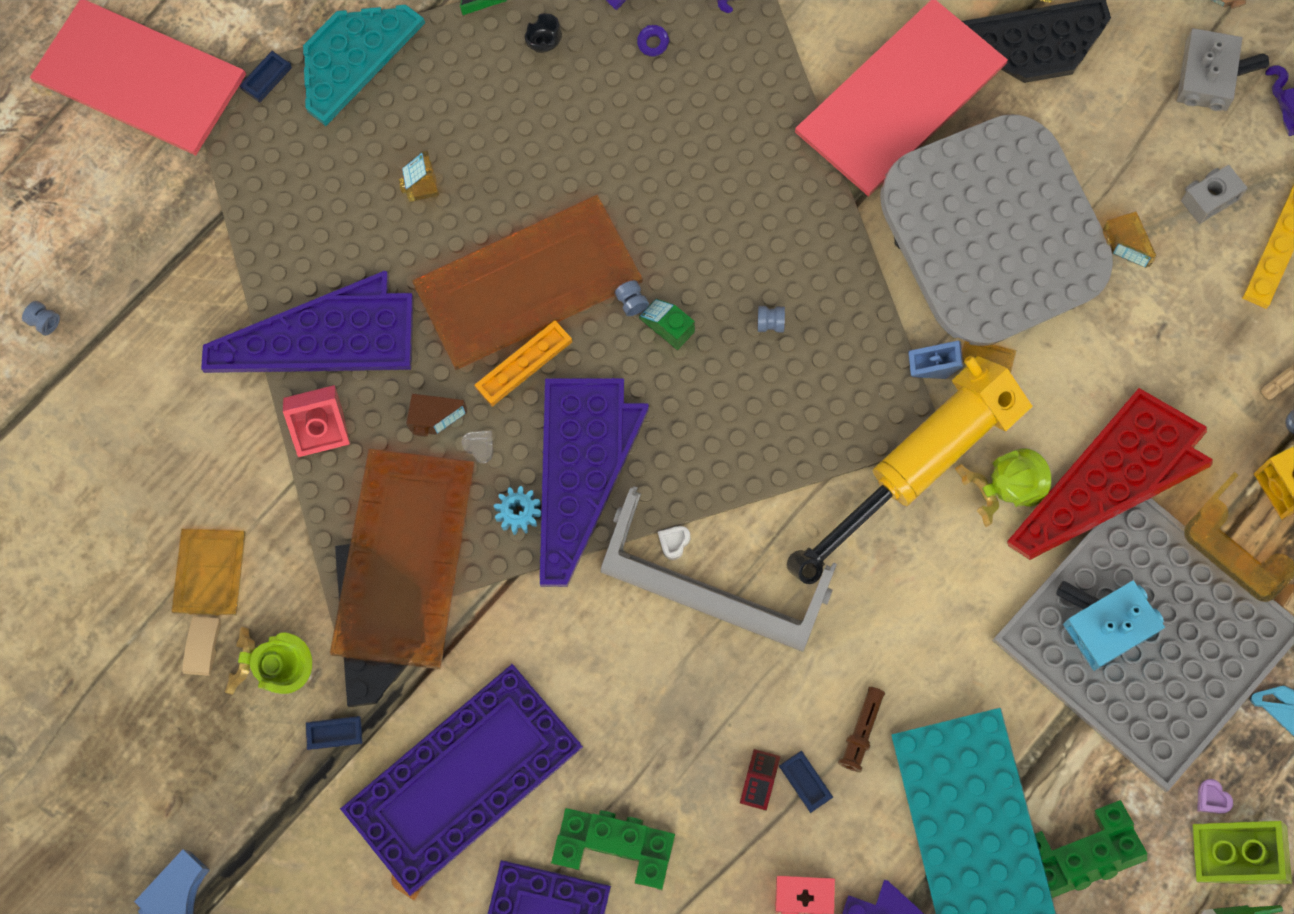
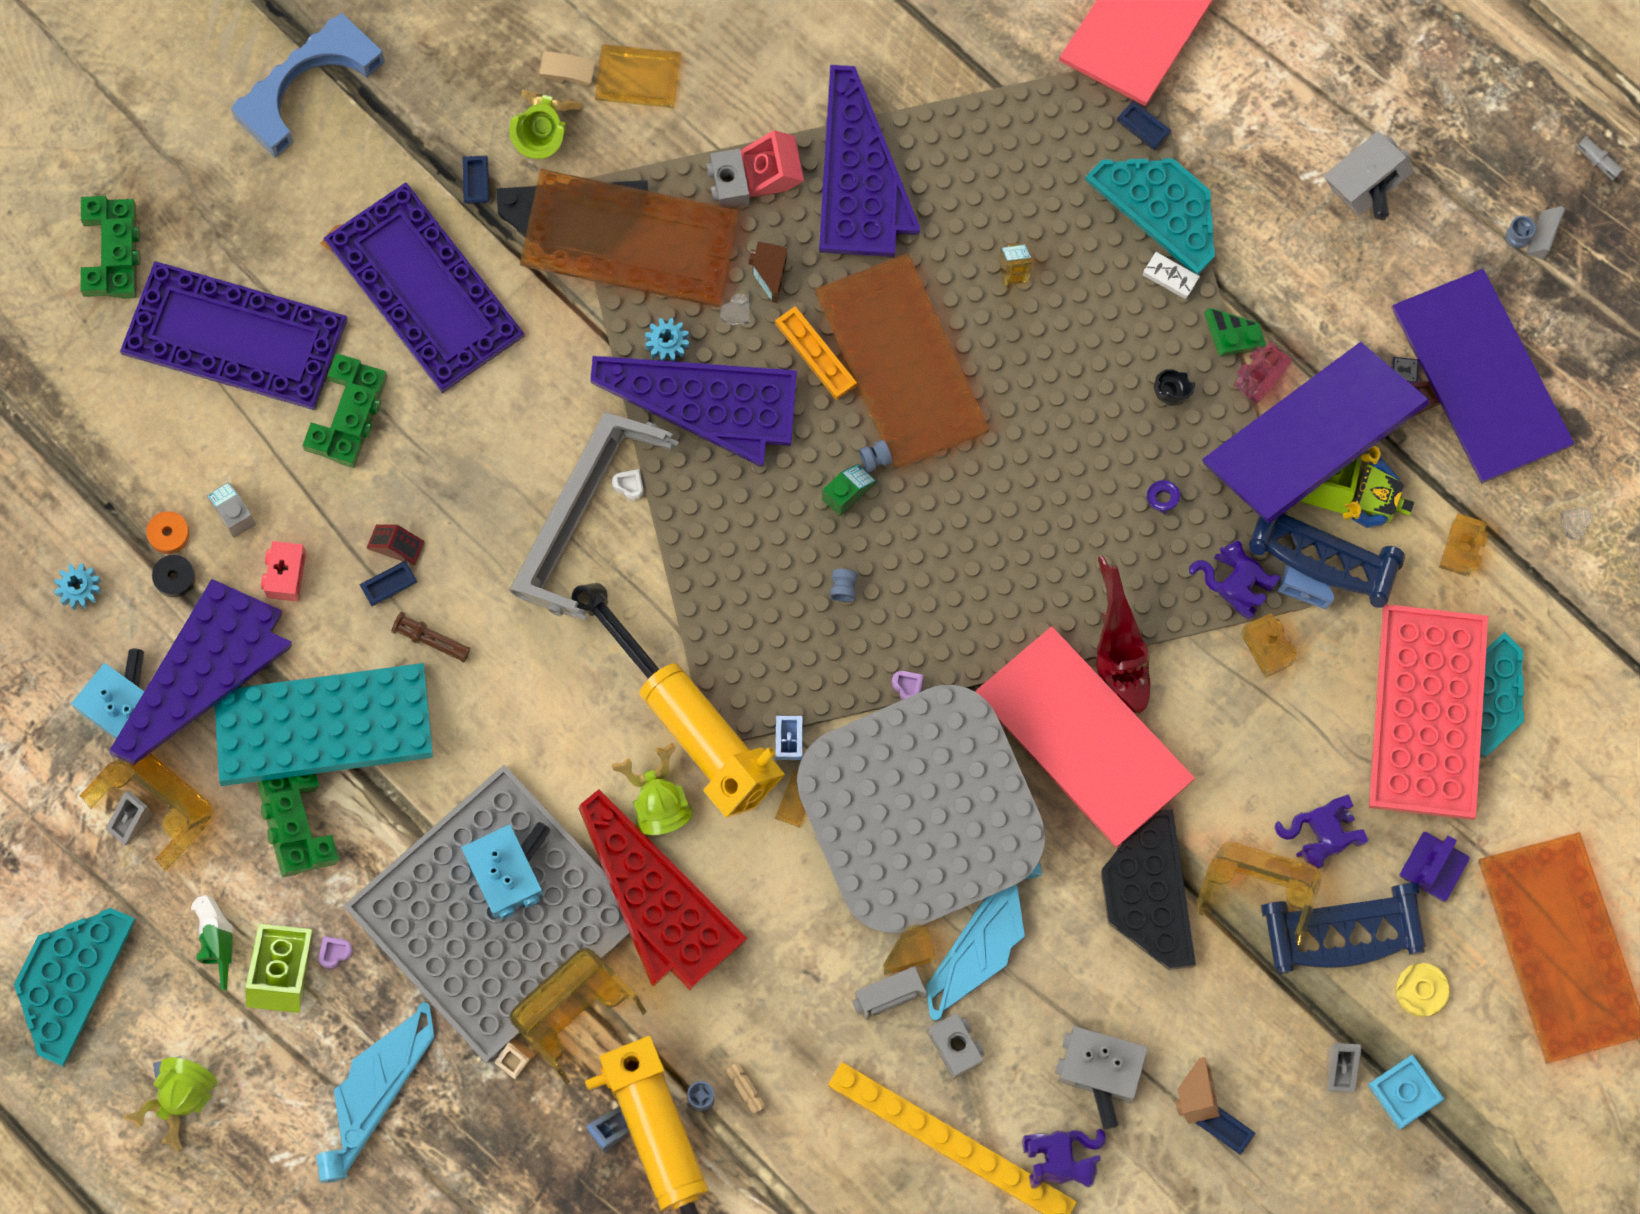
camera: 85 degrees right, 0 degrees up
(318, 456) = (723, 165): none -> light grey brick
(425, 45) = (1171, 275): none -> white tile
(814, 65) = (1121, 652): none -> dark red piece
(865, 256) = (907, 683): none -> lavender tile
(1120, 183) = (980, 948): none -> medium azure wing
(1174, 256) = (889, 993): none -> light grey window

